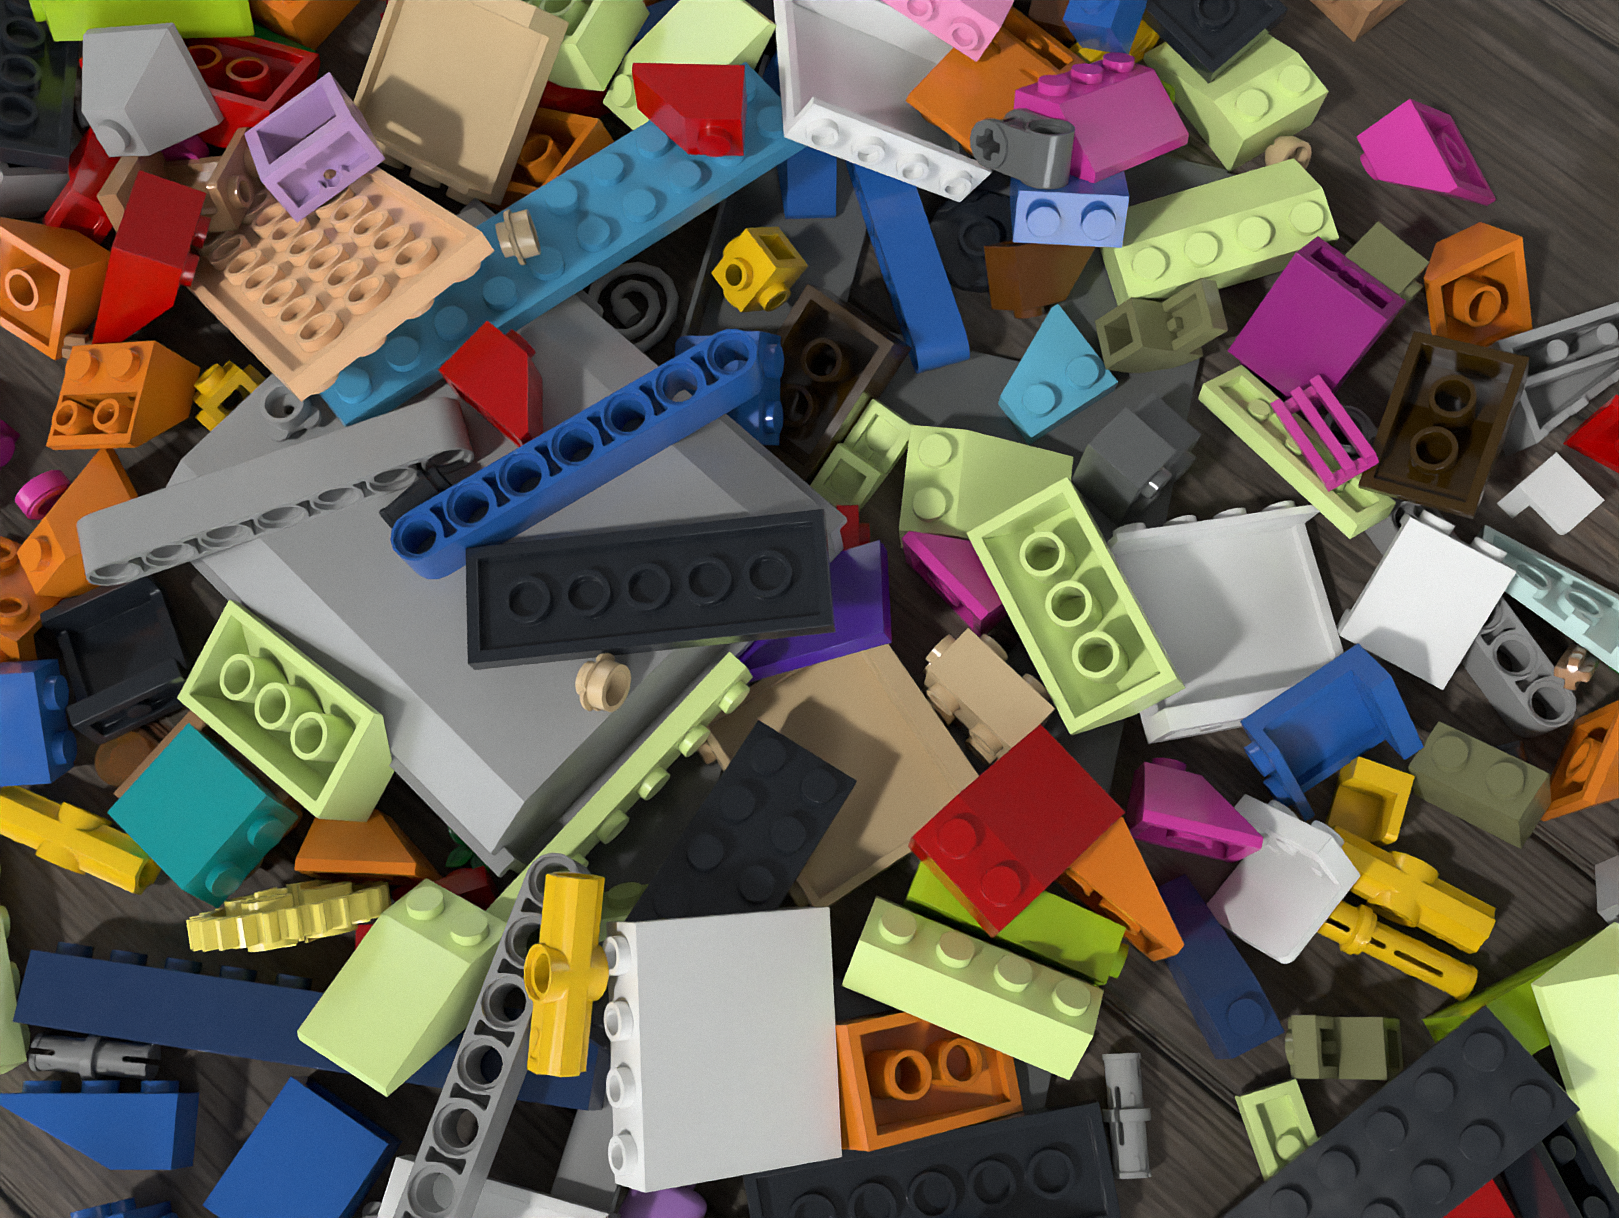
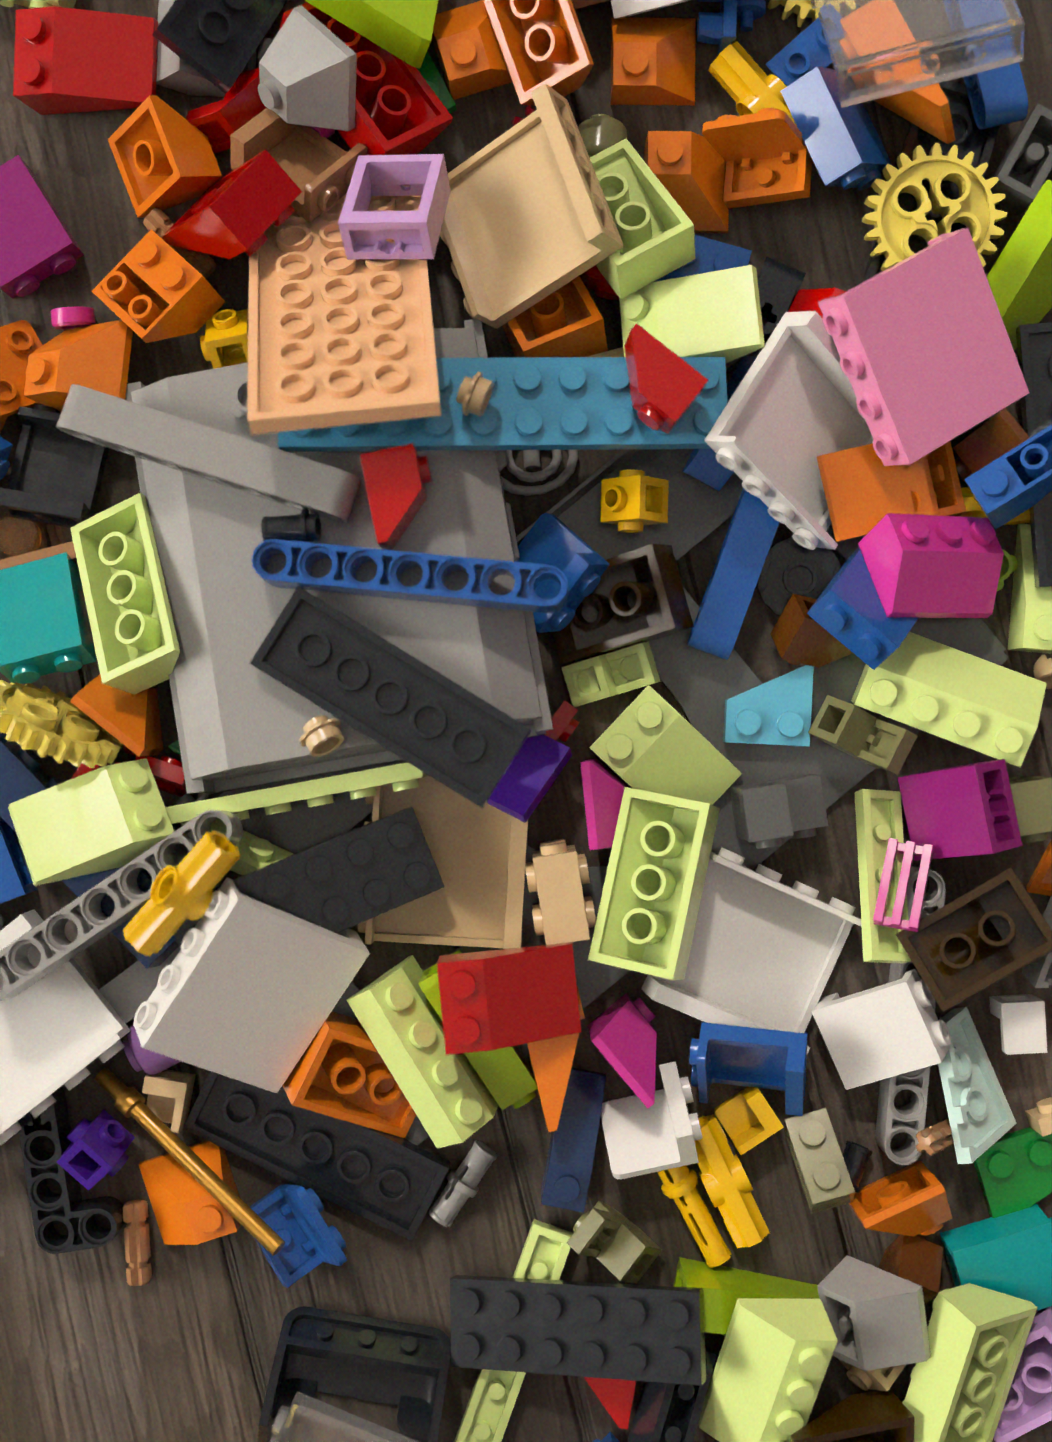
camera: 30 degrees right, 15 degrees up
(1026, 147) = (861, 560): dark grey piece -> none

